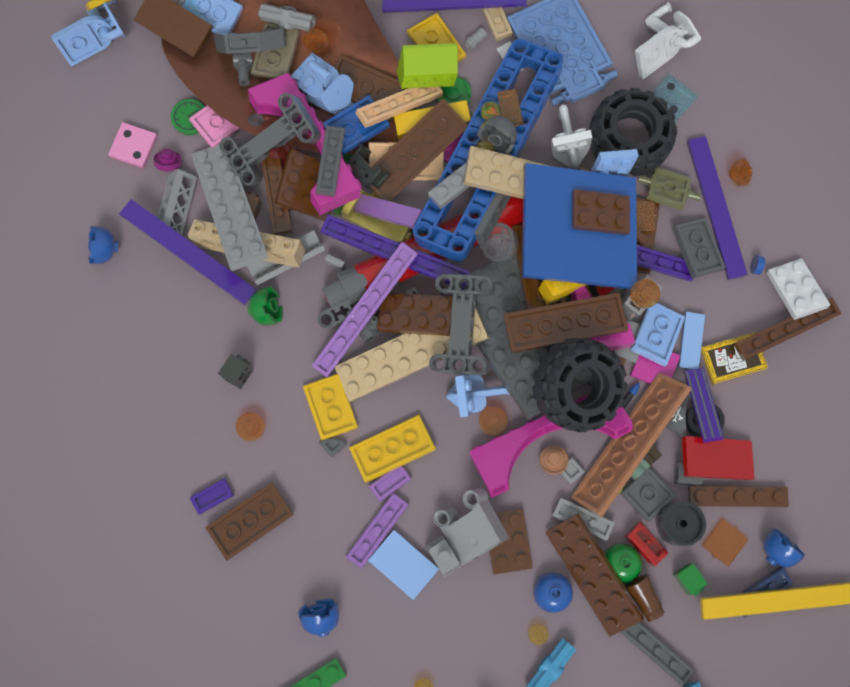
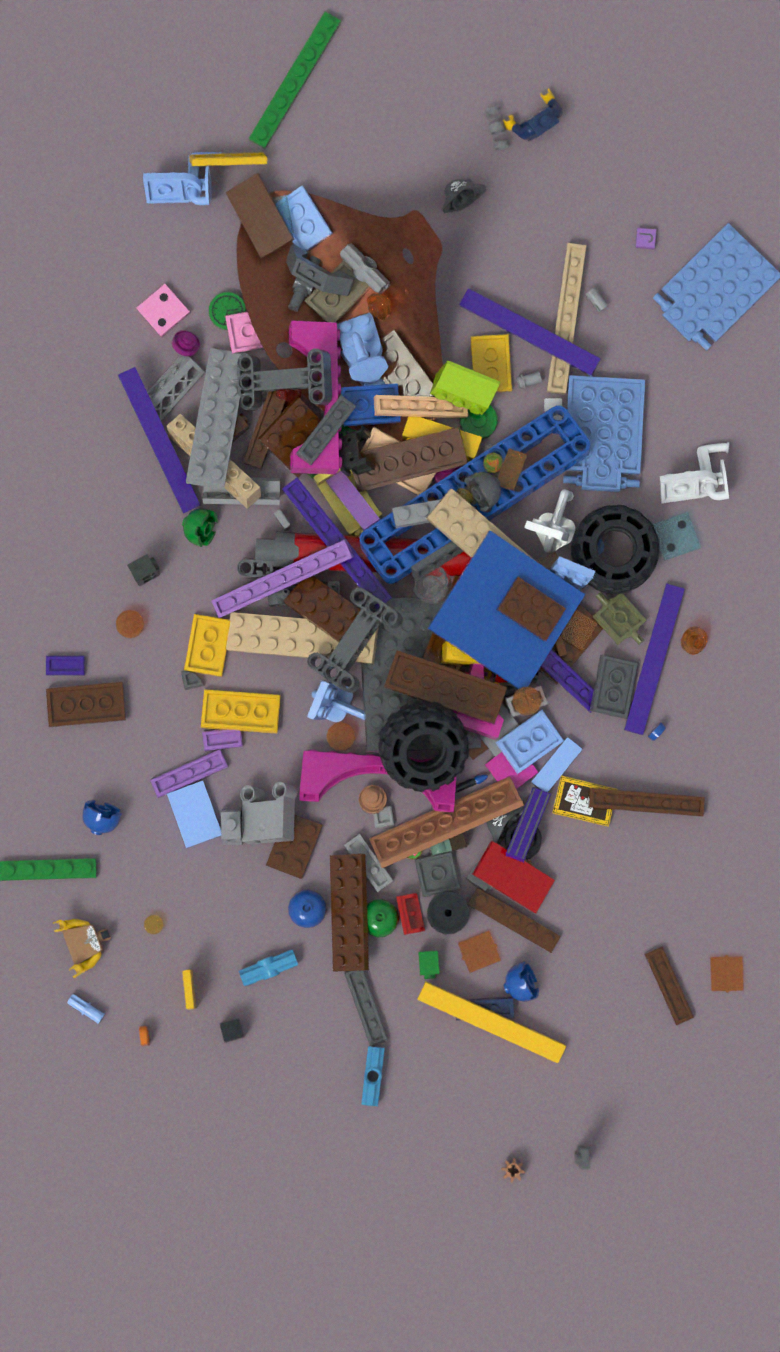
camera: 35 degrees right, 5 degrees up
(101, 245) = (87, 390): blue cylinder -> none
(538, 634) = (274, 935): clear yellow tile -> none
(645, 597) = (381, 956): reddish brown plant -> none
(798, 289) = (678, 772): white plate -> none

